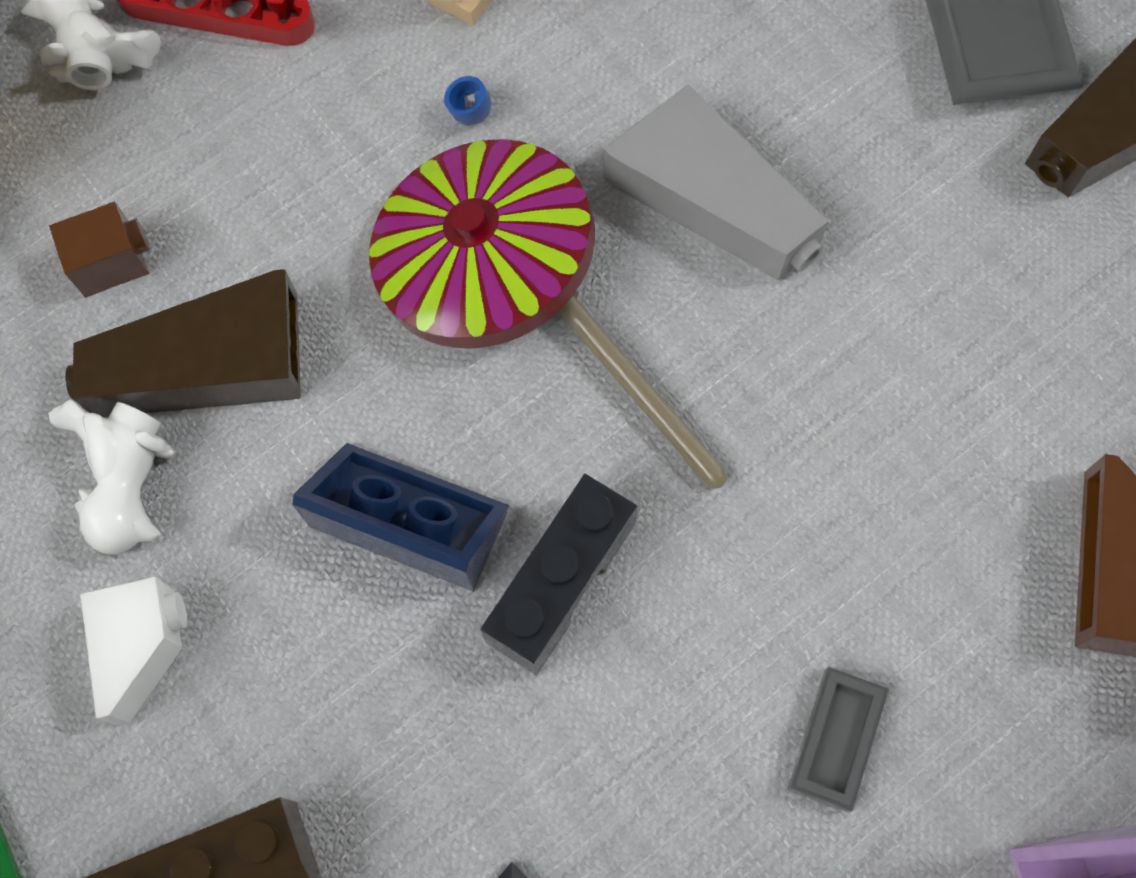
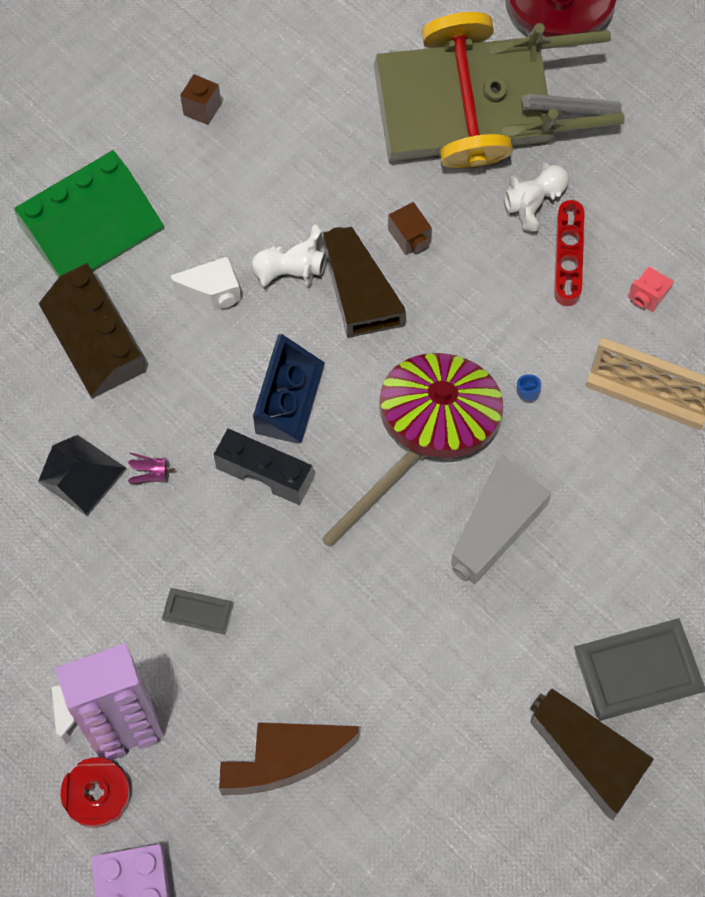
camera: 80 degrees right, 5 degrees down
(527, 809) = (154, 465): none -> flat silver piece

